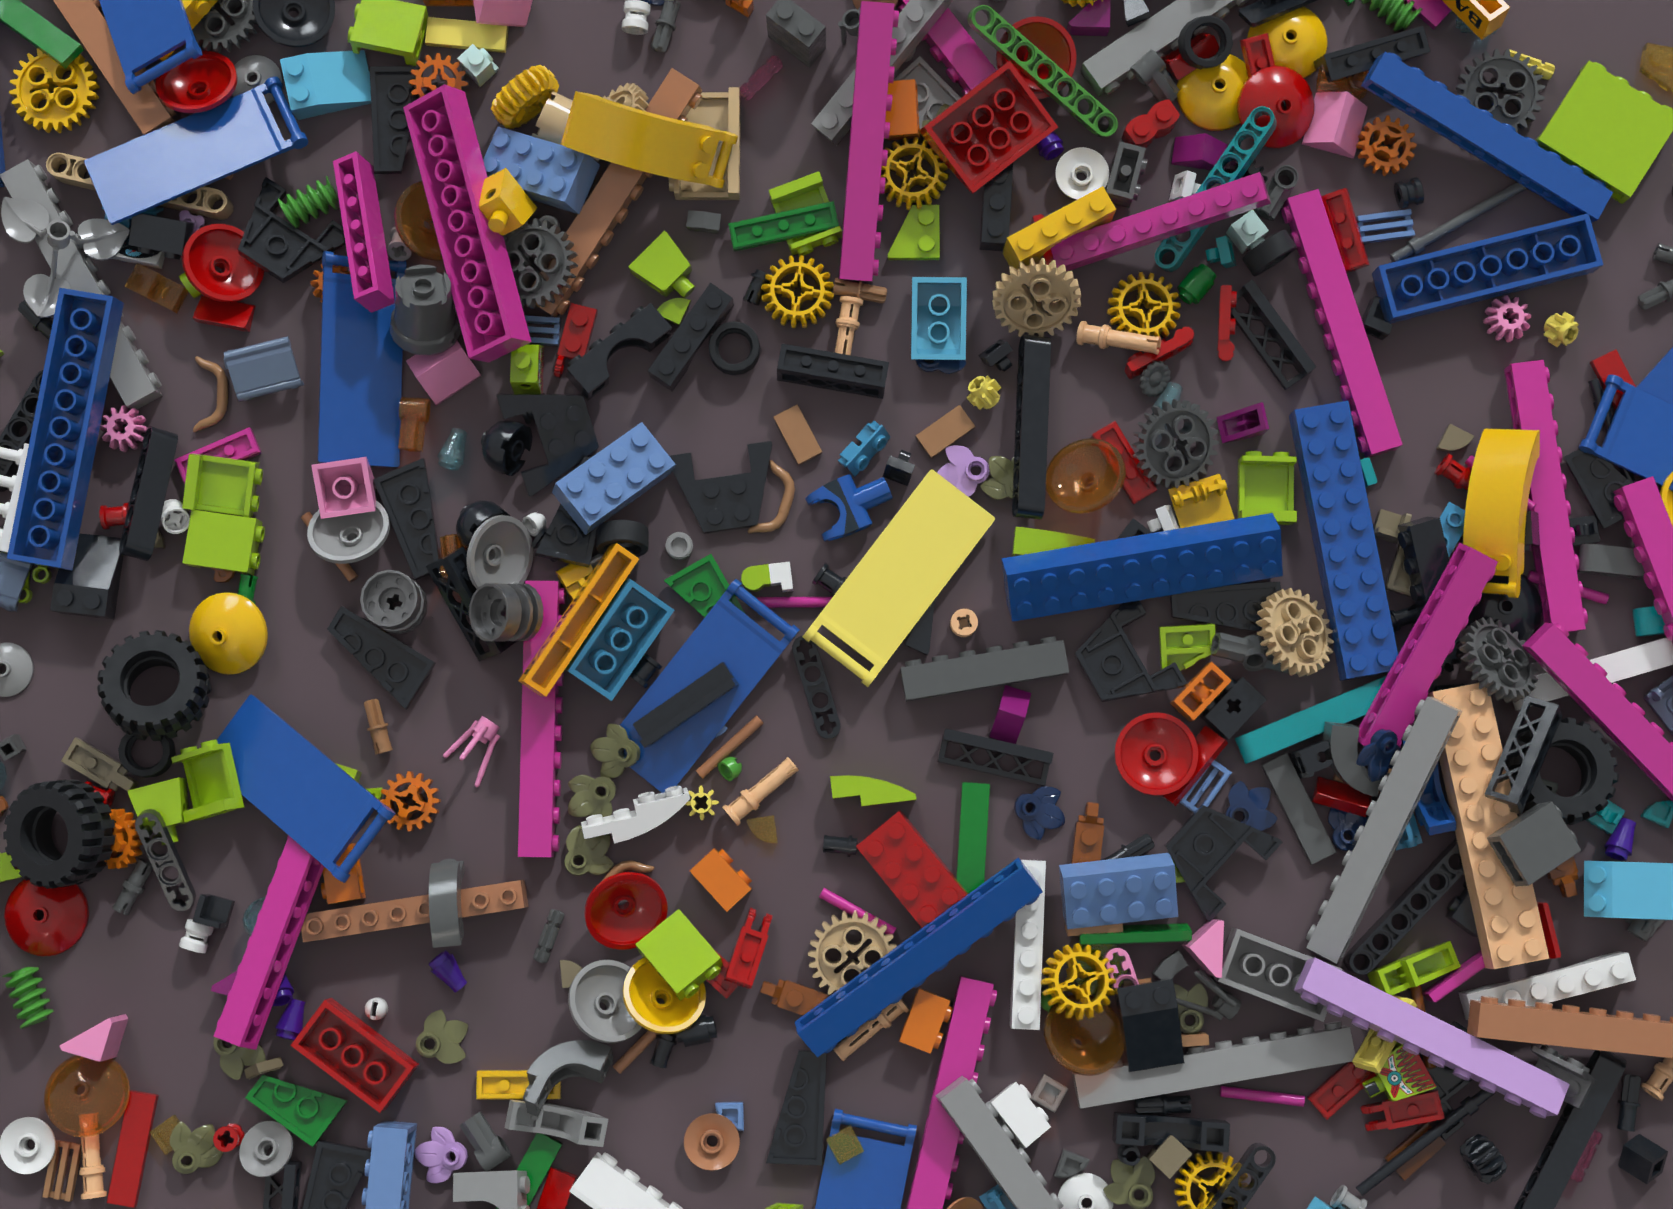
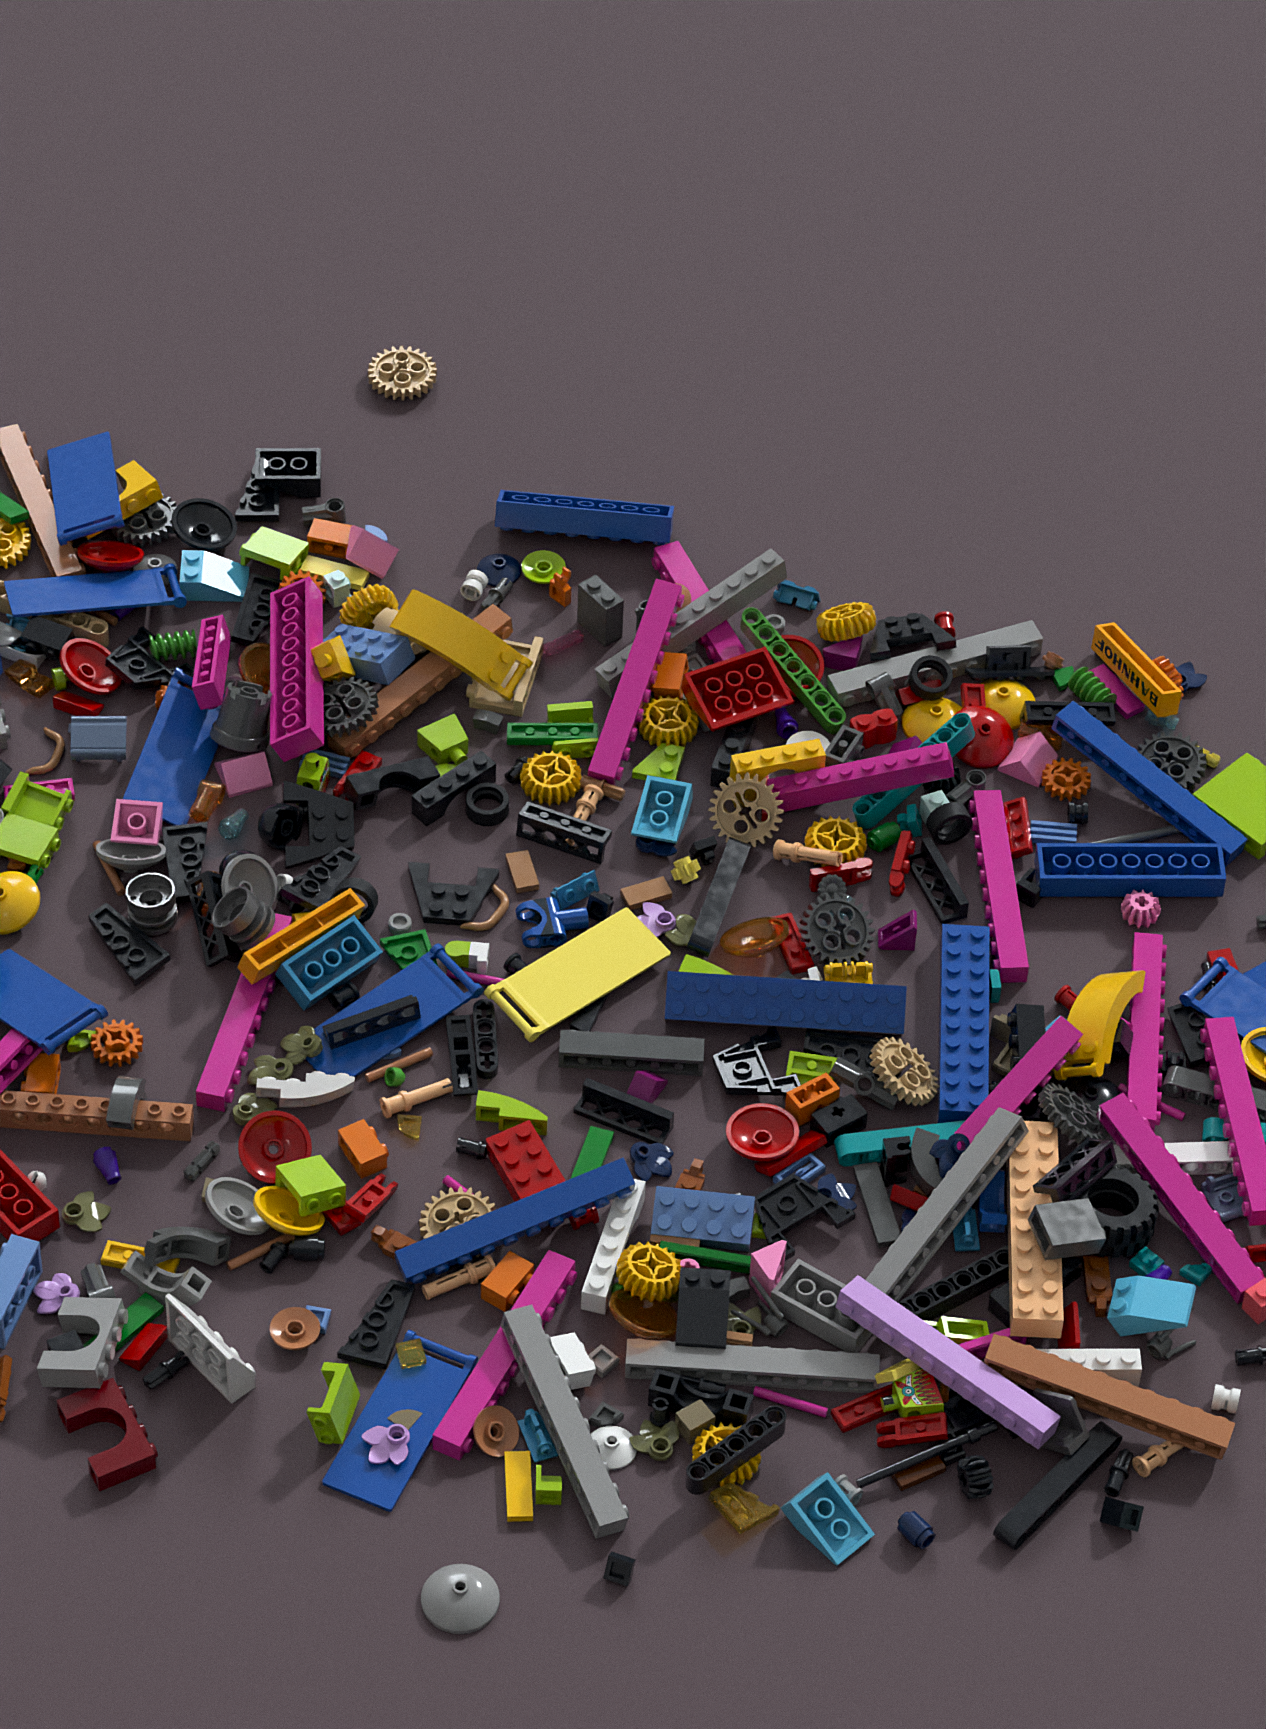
camera: 10 degrees right, 35 degrees down
(377, 728) = (107, 989): medium nougat axle -> none
(481, 731) = (193, 1010): bright pink plant -> none
(613, 478) = (366, 855): medium blue brick -> none
(709, 802) = (363, 1093): light yellow gear -> none
(796, 720) = (461, 1055): none -> black slope
(962, 627) = (623, 1018): light nougat wheel -> none
(1267, 486) = (913, 971): lime panel -> none
(1454, 439) = (1076, 980): dark tan tile -> none
(1561, 329) = (1178, 923): light yellow gear -> none
(1586, 1158) = (1069, 1503): clear pink axle -> none

